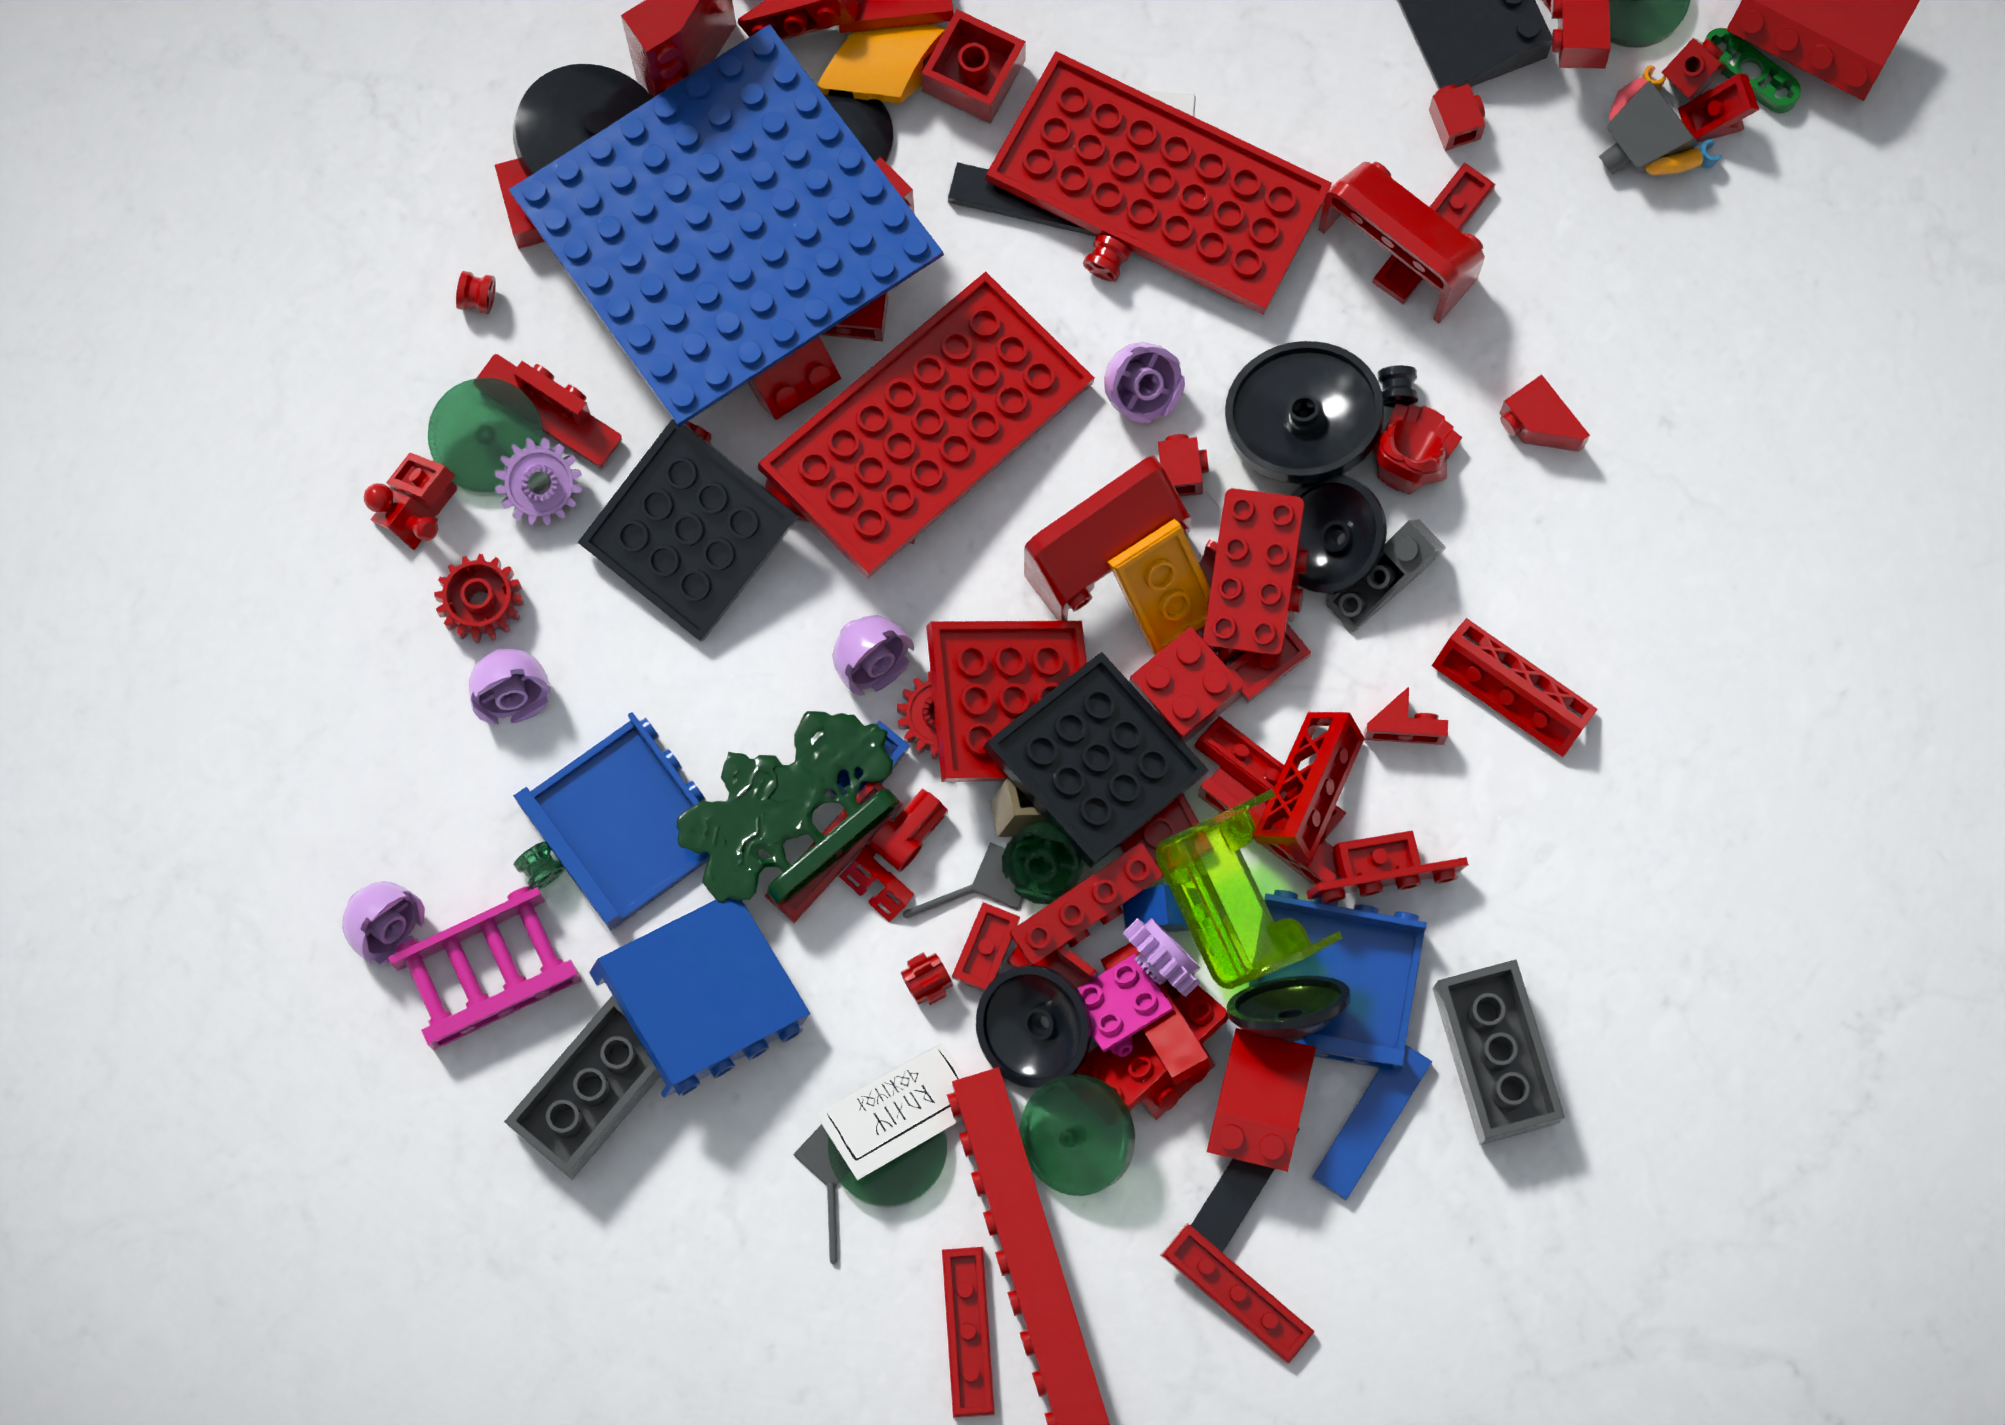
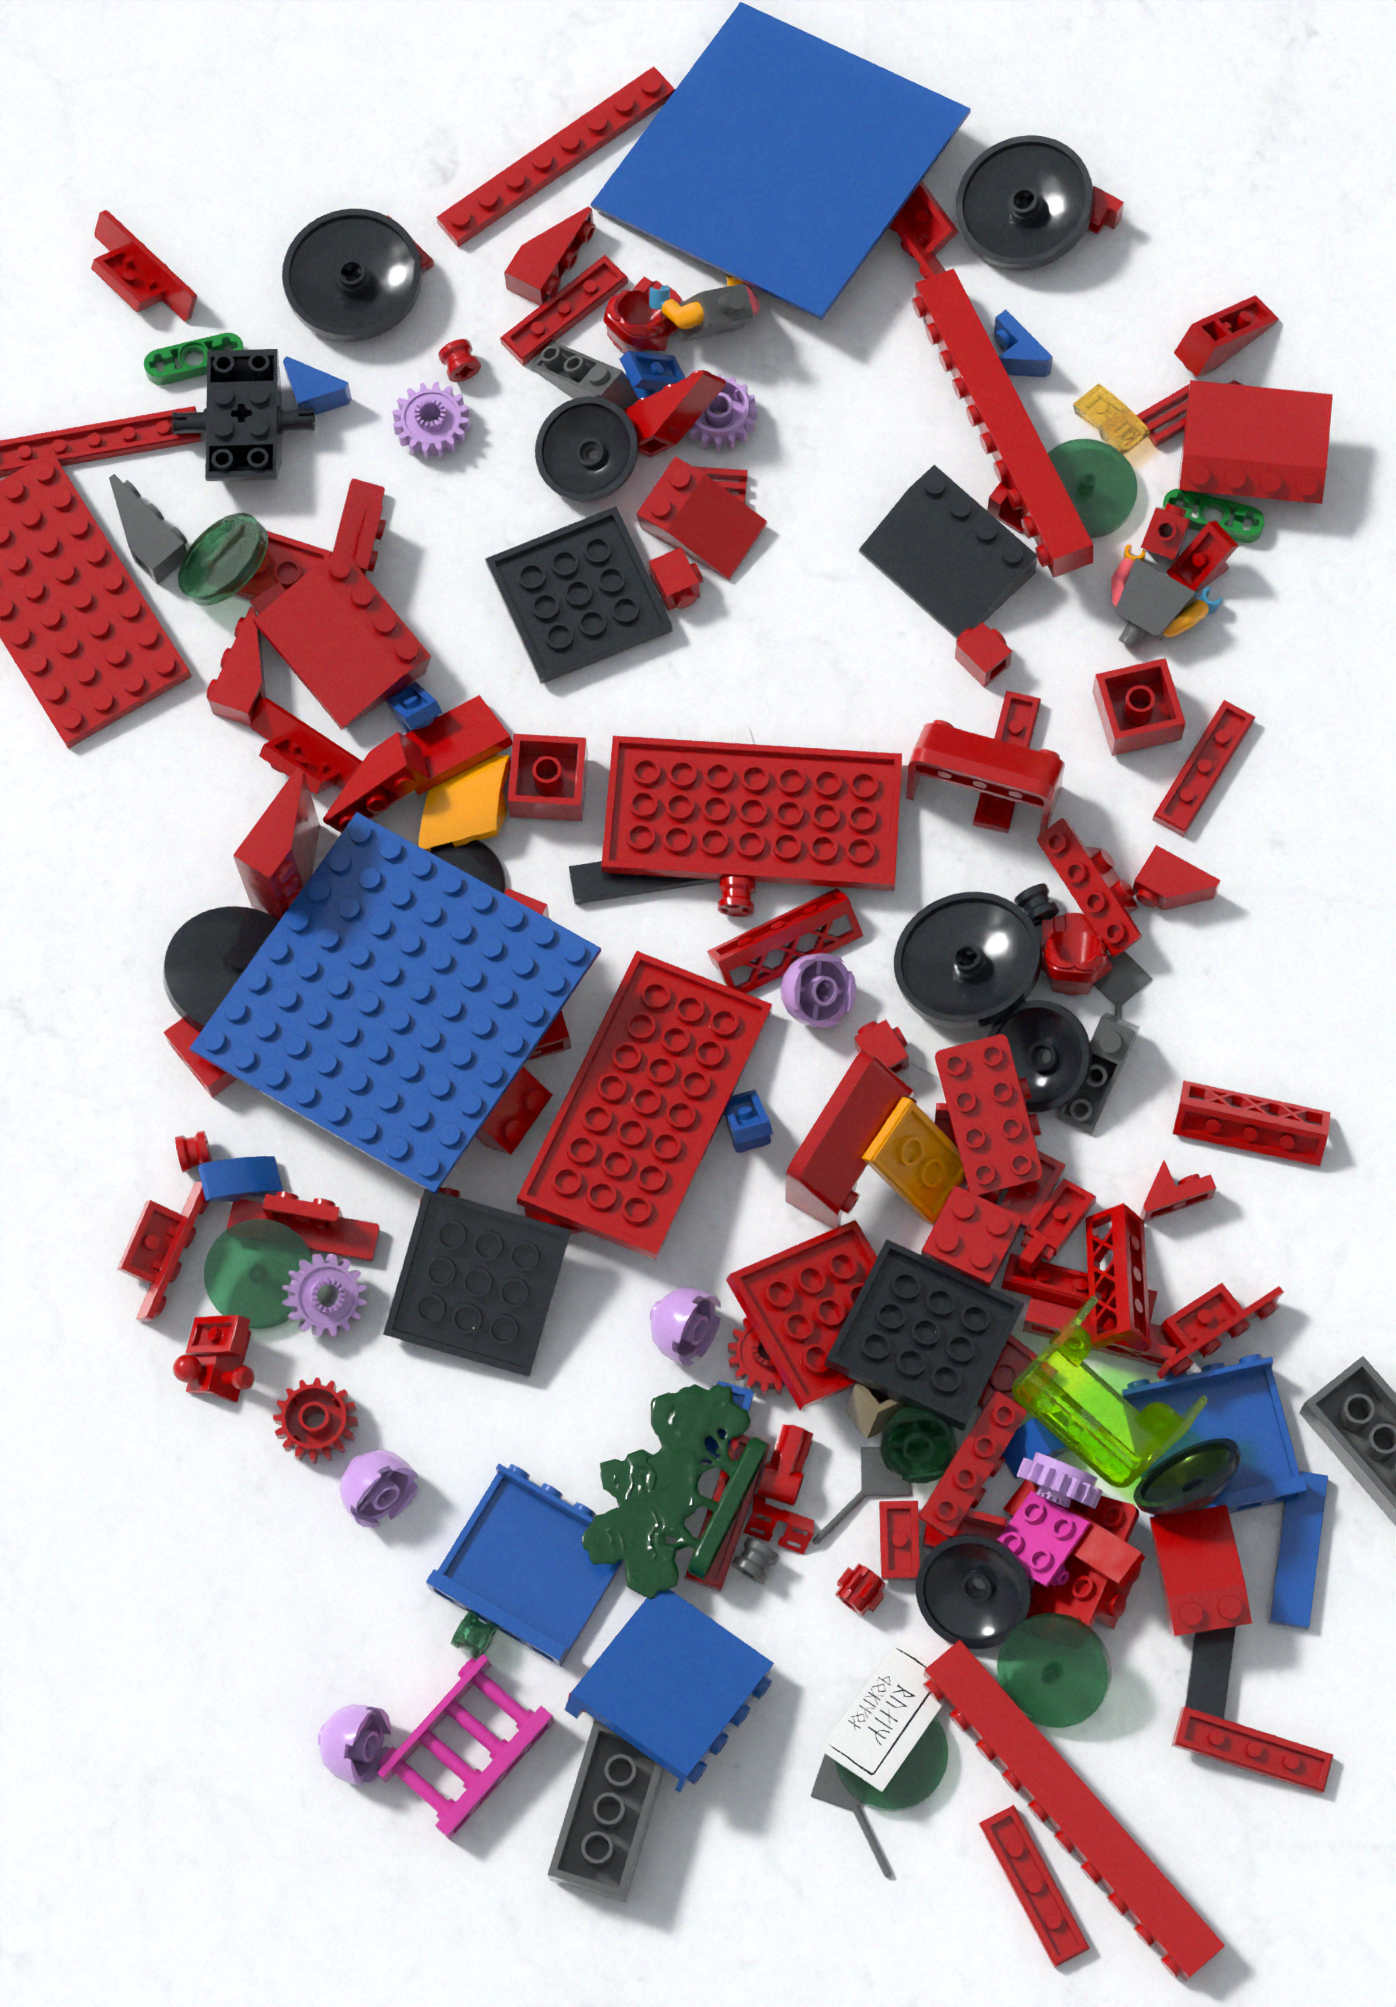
camera: 20 degrees left, 5 degrees down
(402, 367) = (157, 1246): none -> red bracket
(507, 335) = (239, 1177): none -> blue slope
(838, 908) = (755, 1560): none -> dark grey wheel
(1019, 482) = (747, 1122): none -> blue slope
(1133, 310) = (780, 931): none -> red fence
(1273, 705) = (1054, 1224): none -> red hinge
(1451, 495) = (1122, 981): none -> dark grey piece
(1463, 390) = (1094, 885): none -> red bracket
(1587, 230) = (1138, 707): none -> red brick
(1626, 318) = (1203, 768): none -> red tile

